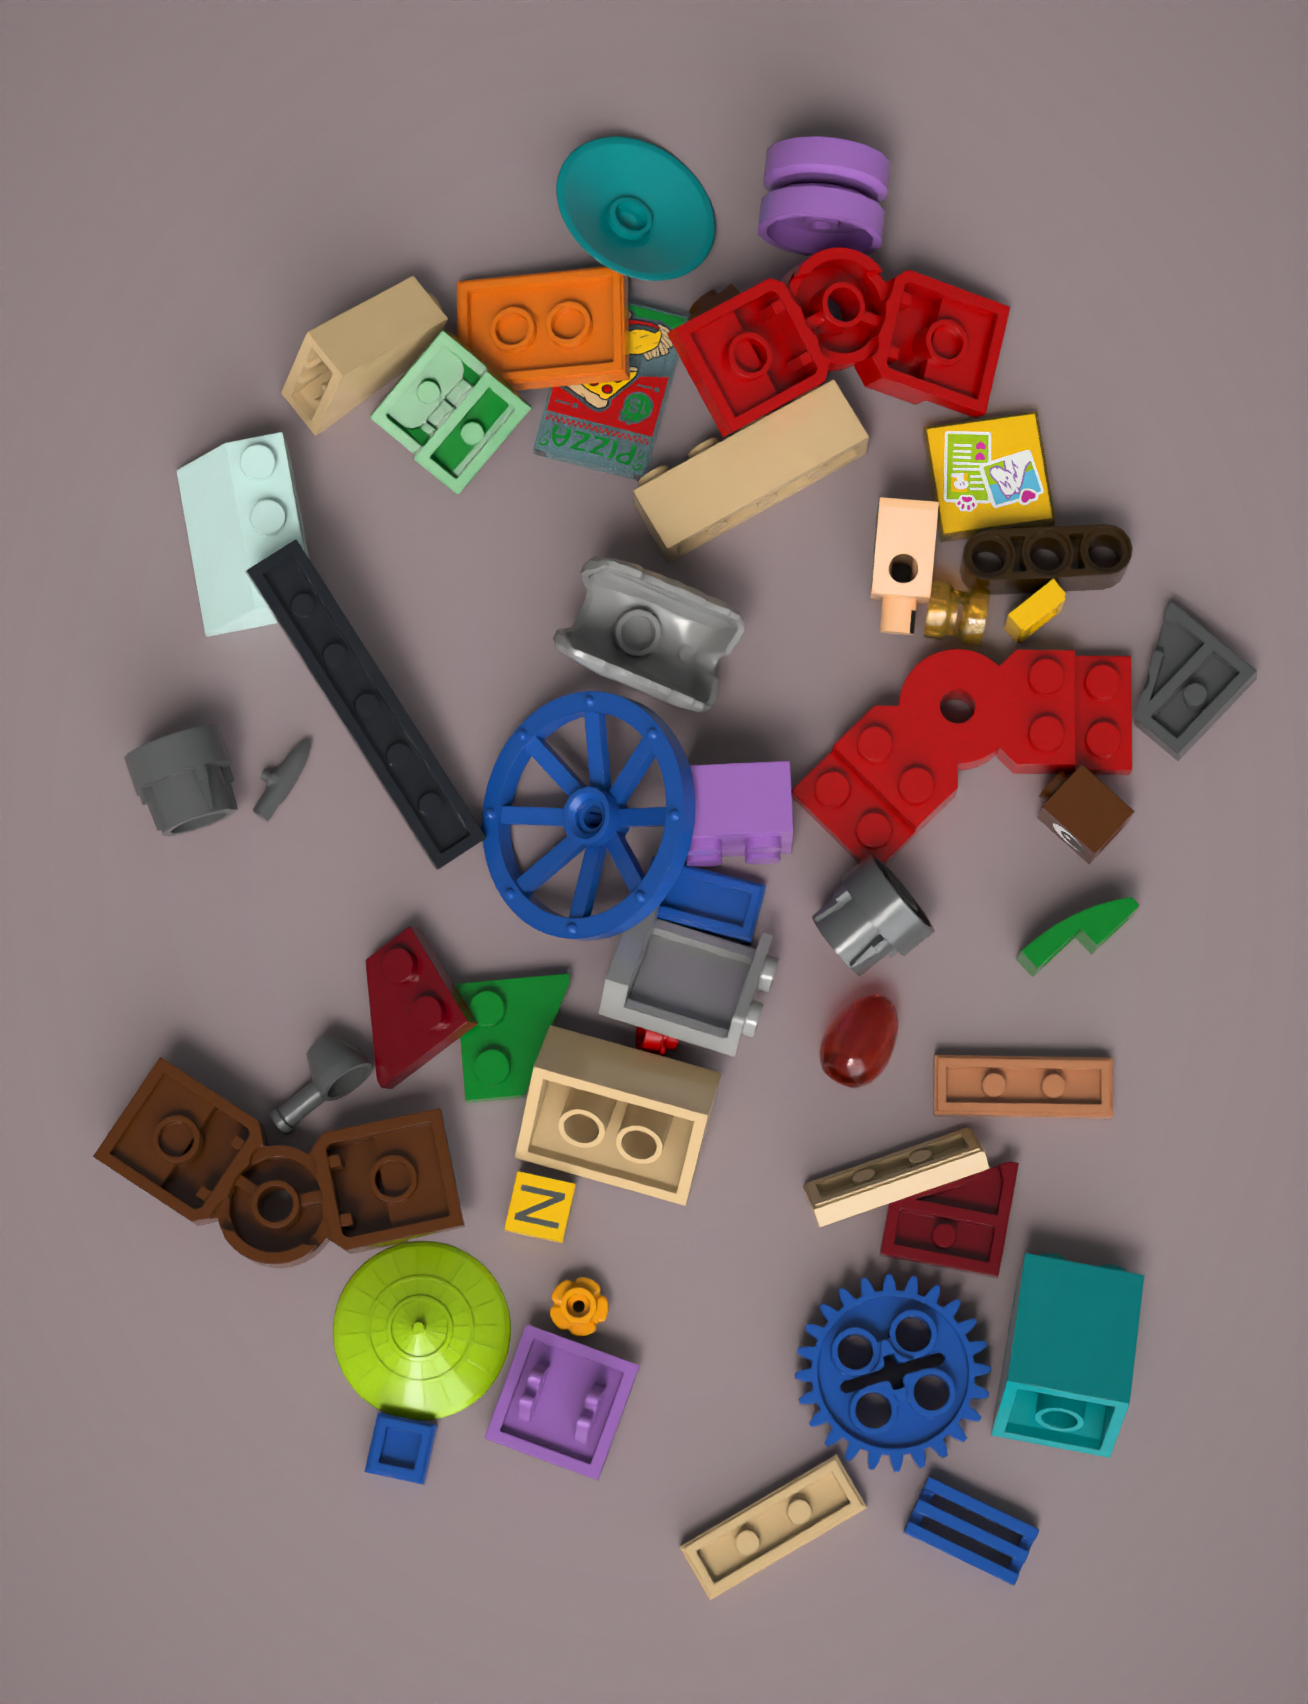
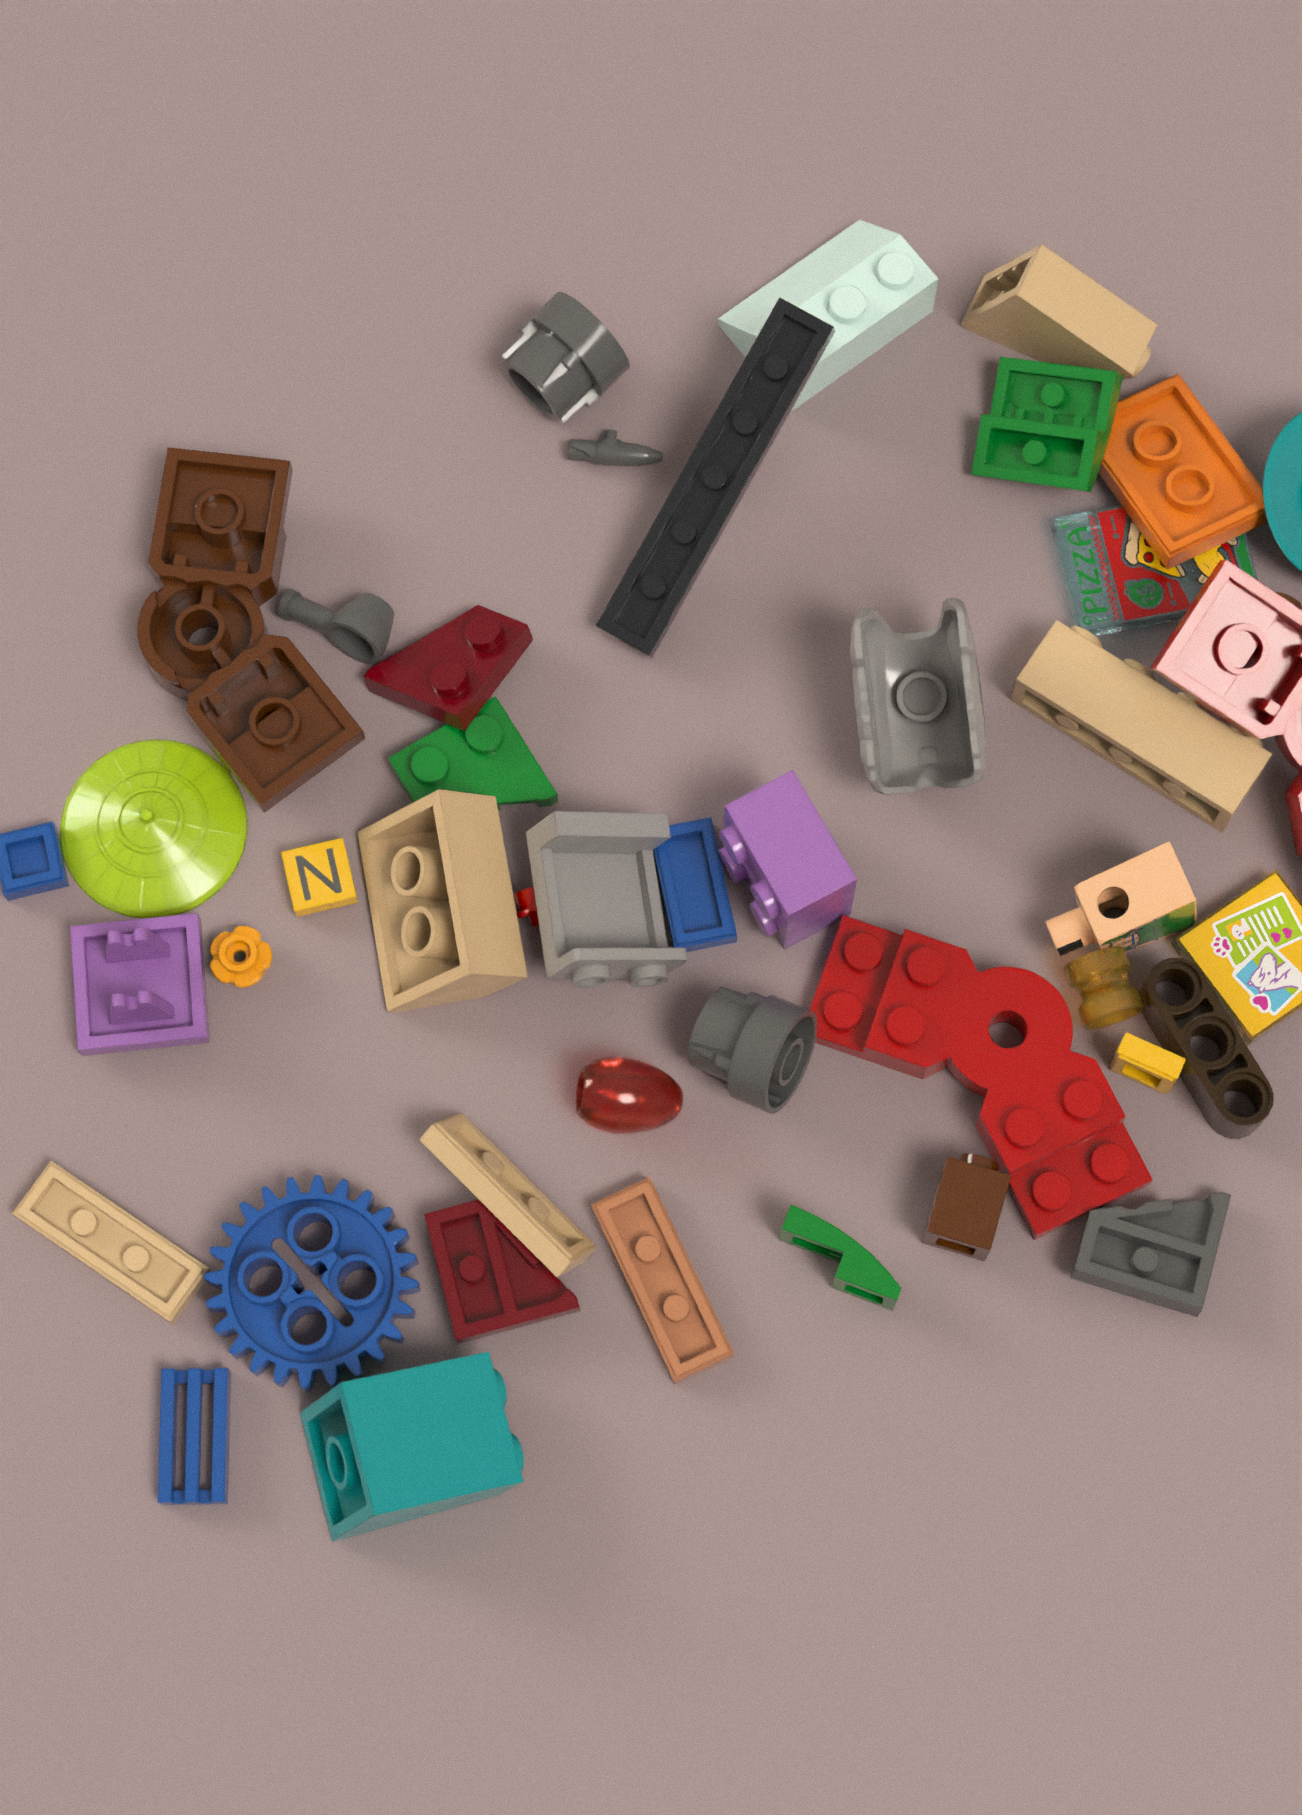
camera: 60 degrees right, 5 degrees down
(592, 816) = (714, 736): blue wheel -> none

